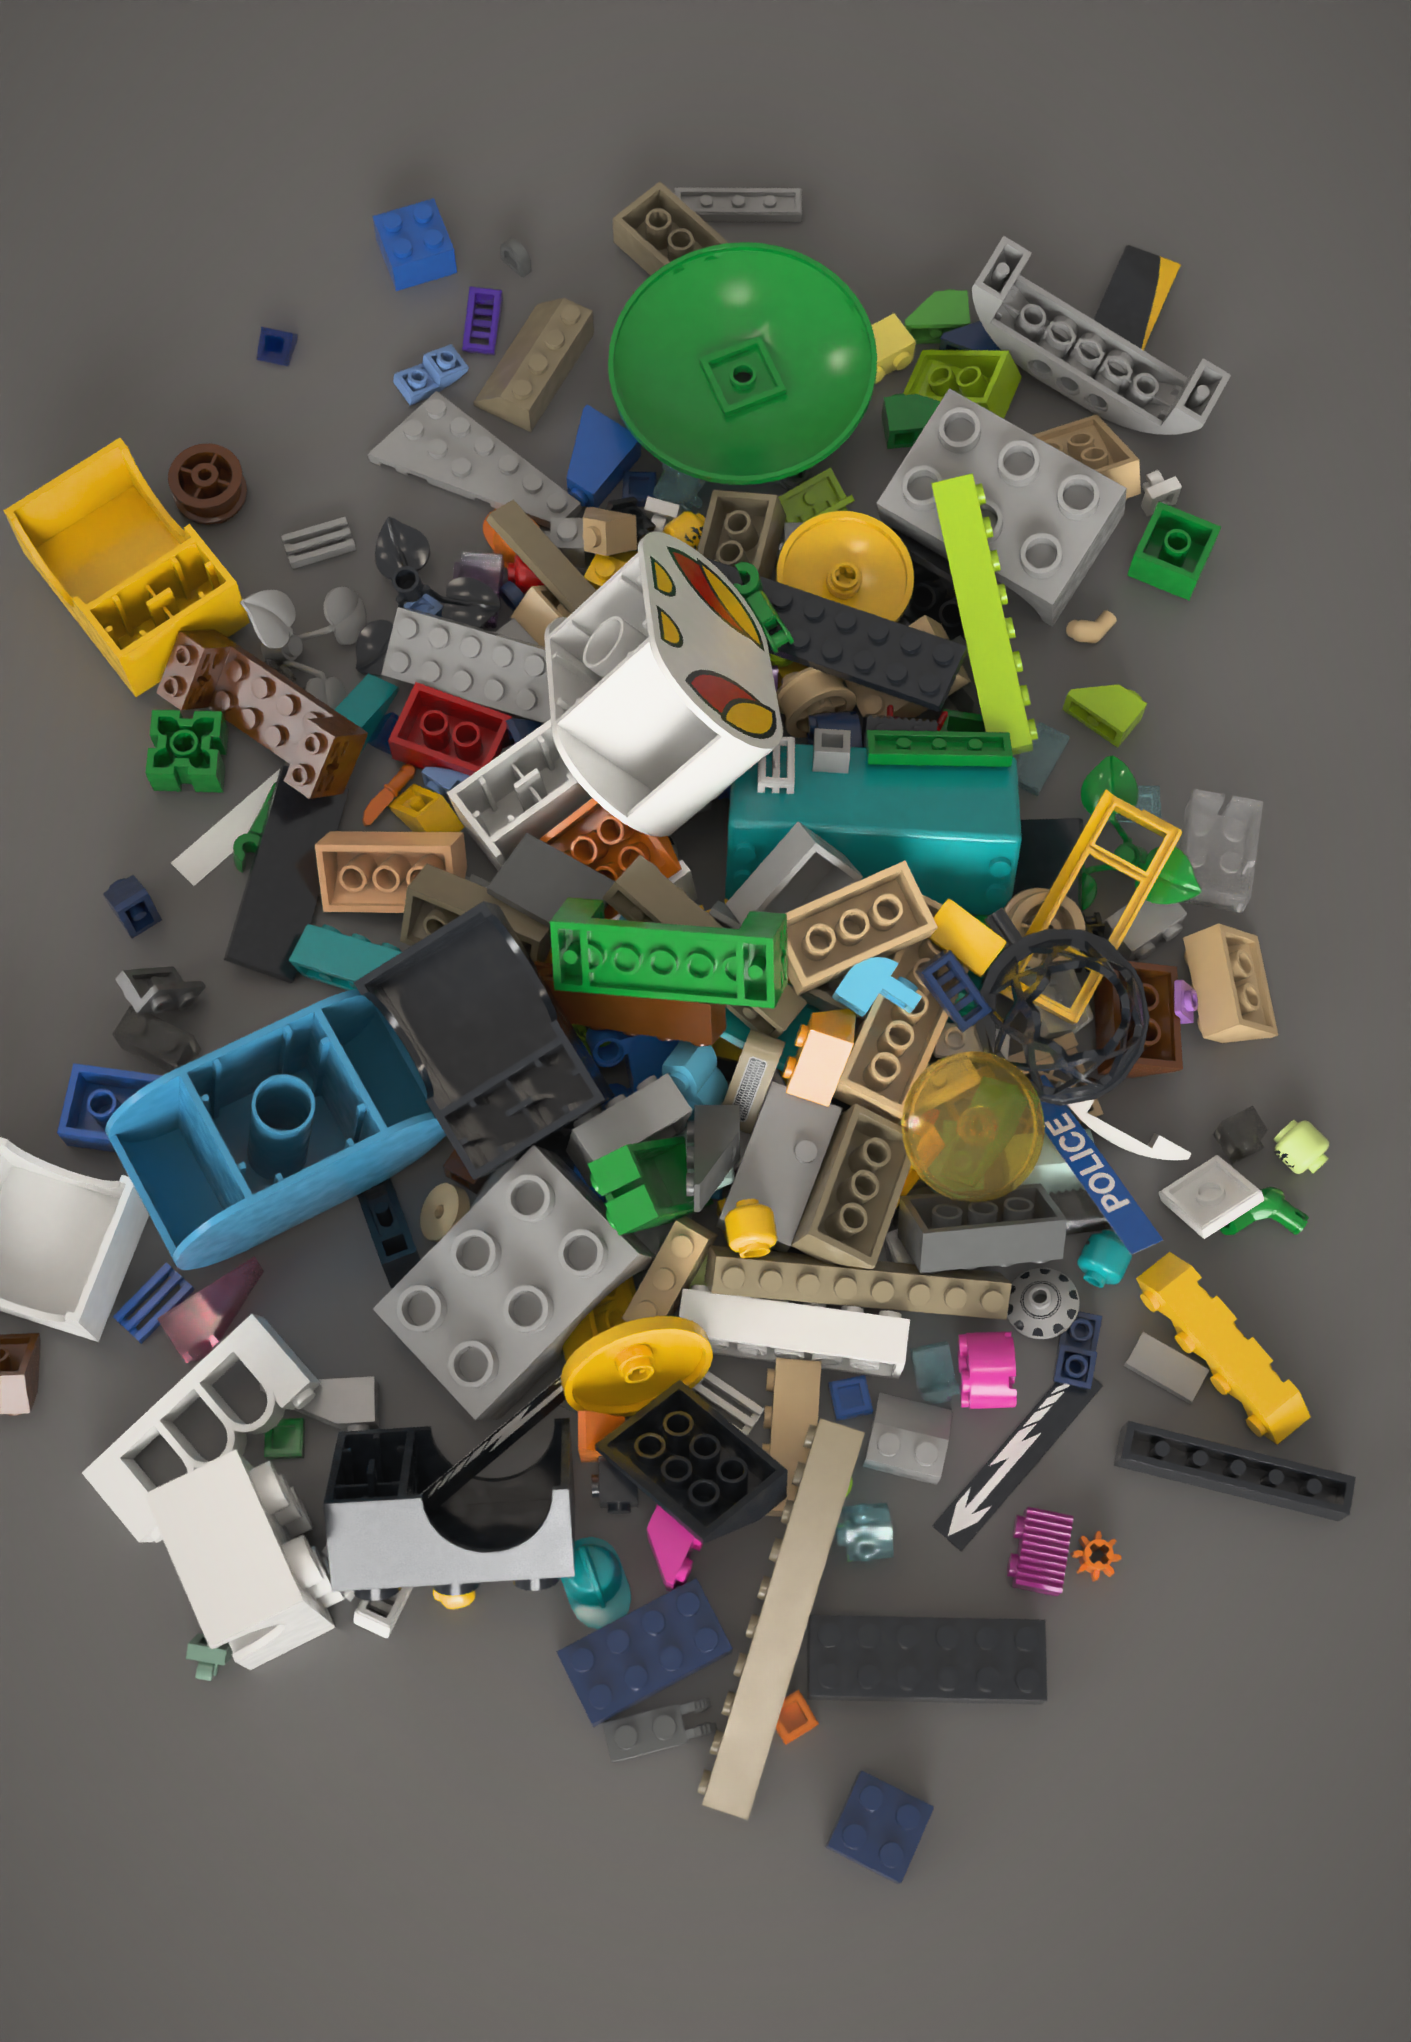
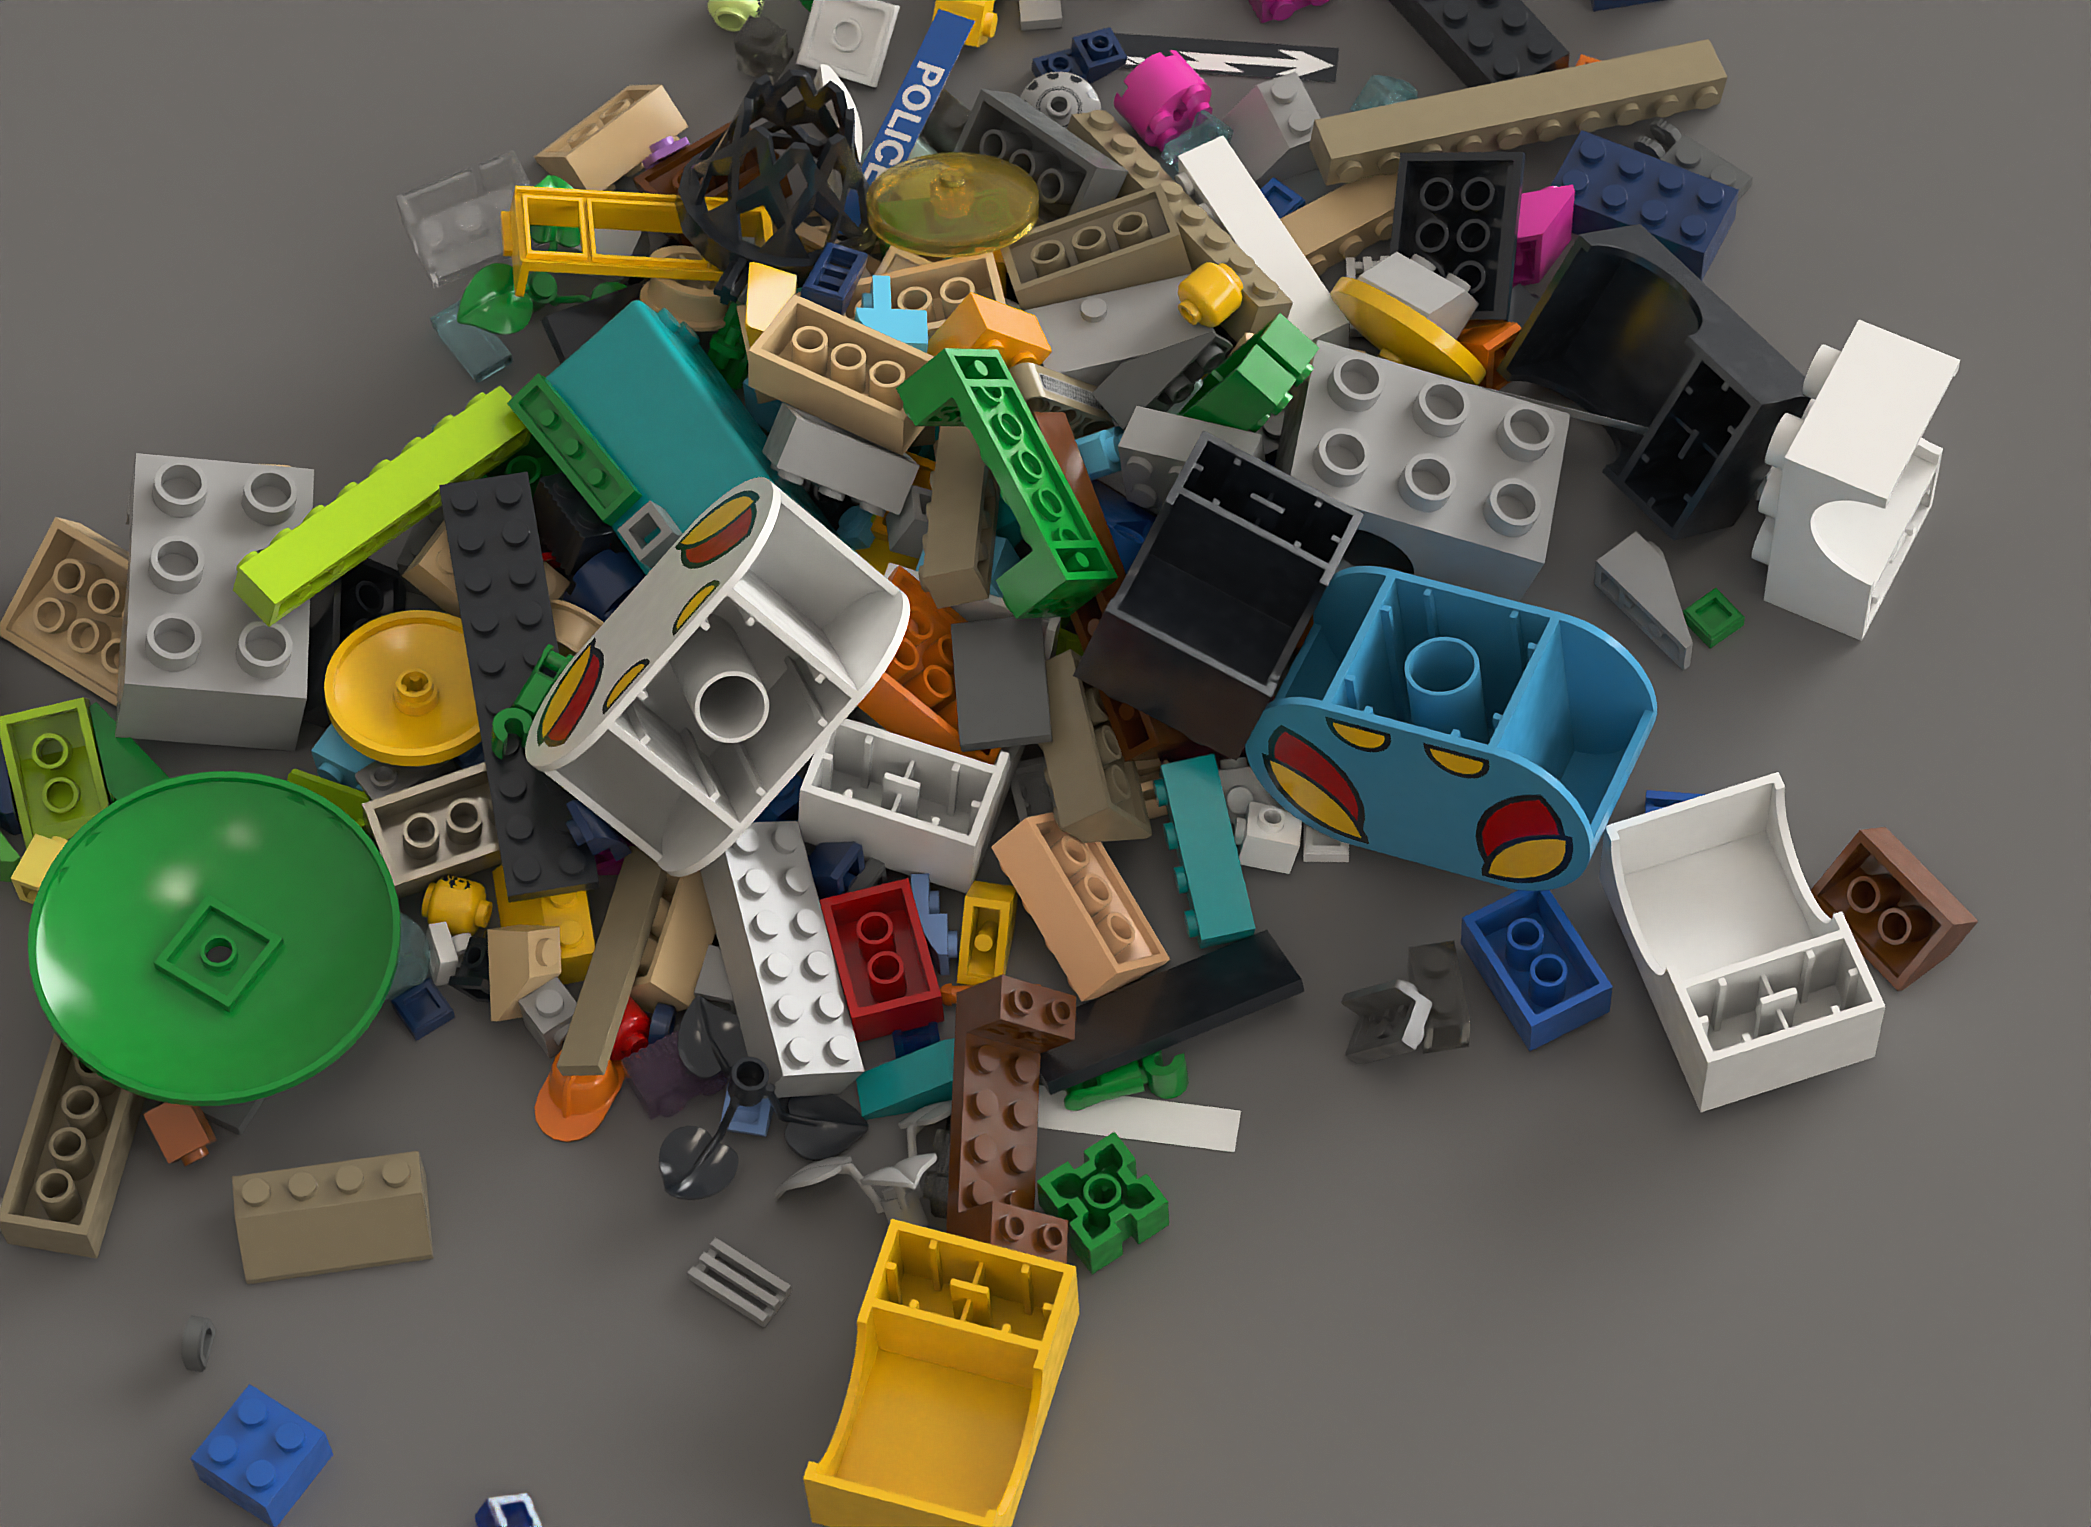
camera: 120 degrees left, 10 degrees down
(132, 905) = (1317, 1124): dark blue slope -> none
(206, 1316) = (1678, 756): clear pink slope -> none
(207, 483) = (762, 1462): reddish brown wheel -> none
(208, 1658) = (1948, 530): sand green tile -> none
(272, 1363) = (1876, 663): white fence -> none
(434, 374) = (426, 1324): medium blue slope -> none
(468, 460) = (516, 1214): light grey wing -> none
(487, 297) = (304, 1340): dark purple slope -> none
(599, 457) = (419, 1064): blue slope -> none
(654, 1388) = (1417, 286): none -> light grey slope
(1104, 1259) = (974, 74): teal head -> none
(1106, 710) = (376, 403): lime slope -> none
(1159, 491) = (66, 504): white tile -> none
(1173, 550) = (130, 427): green brick -> none

